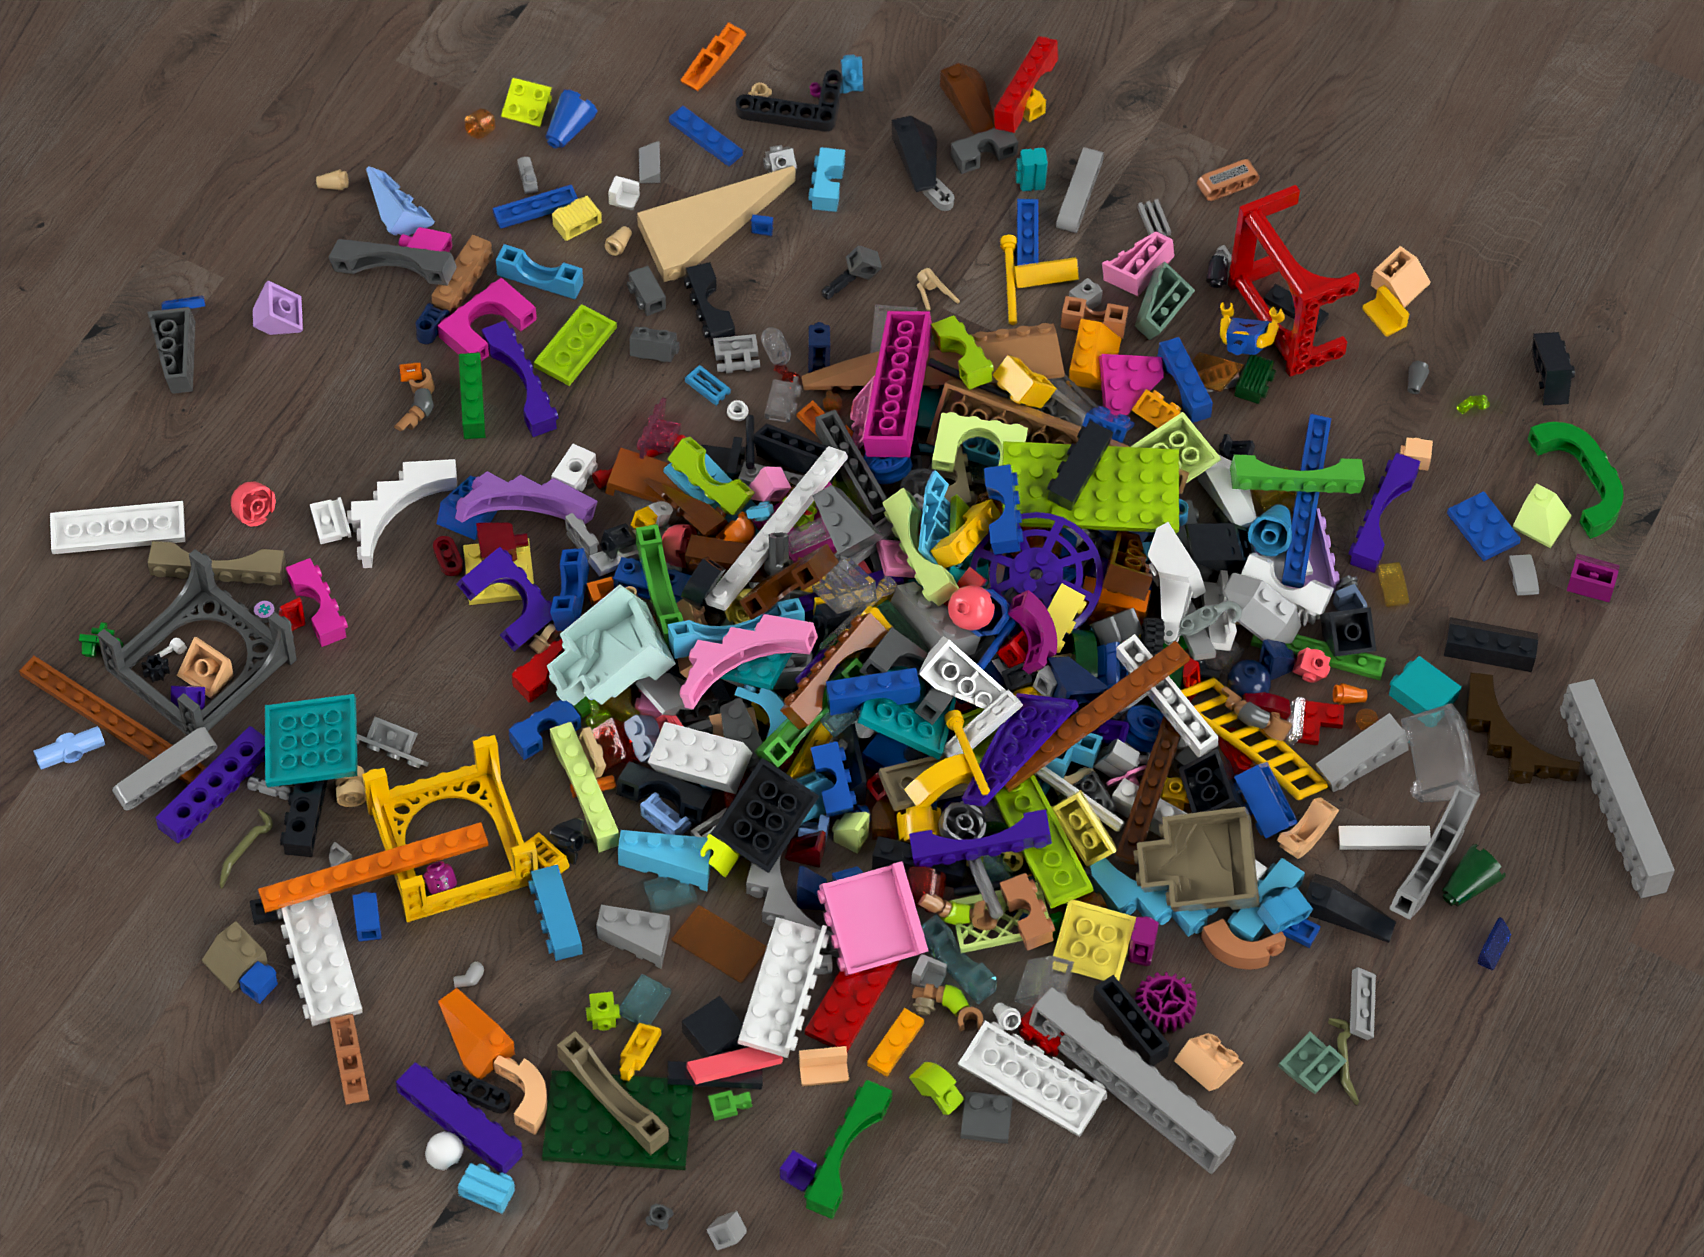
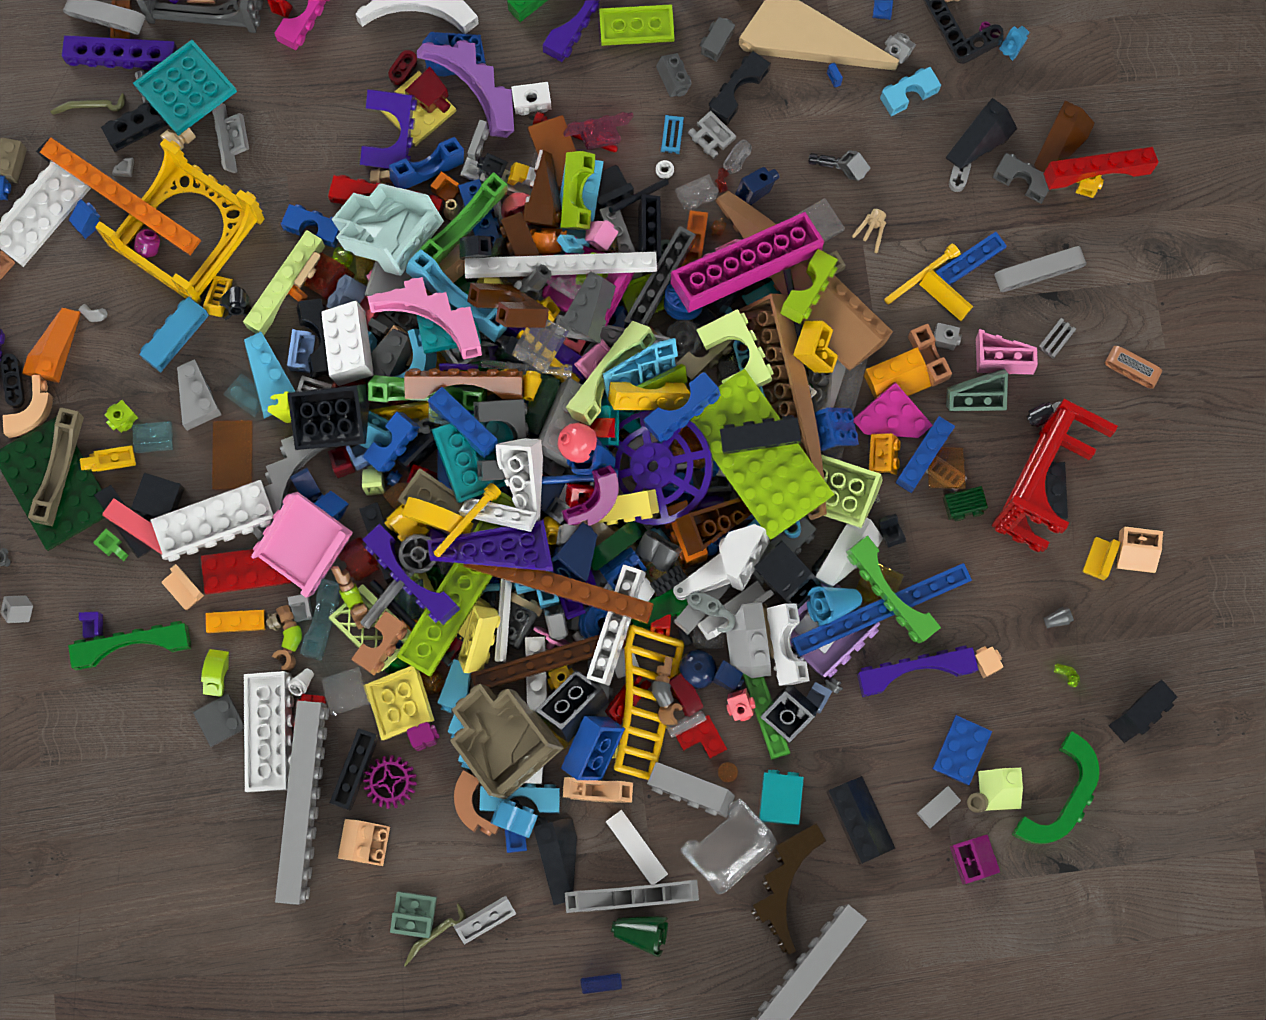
camera: 55 degrees right, 20 degrees up
(1031, 169) = (1027, 223): teal brick -> none
(1248, 335) = (995, 471): torso -> none
(1348, 694) = (738, 746): orange cone -> none
(1393, 584) = (859, 717): clear yellow slope -> none
(1542, 542) = (977, 802): none -> dark tan tile

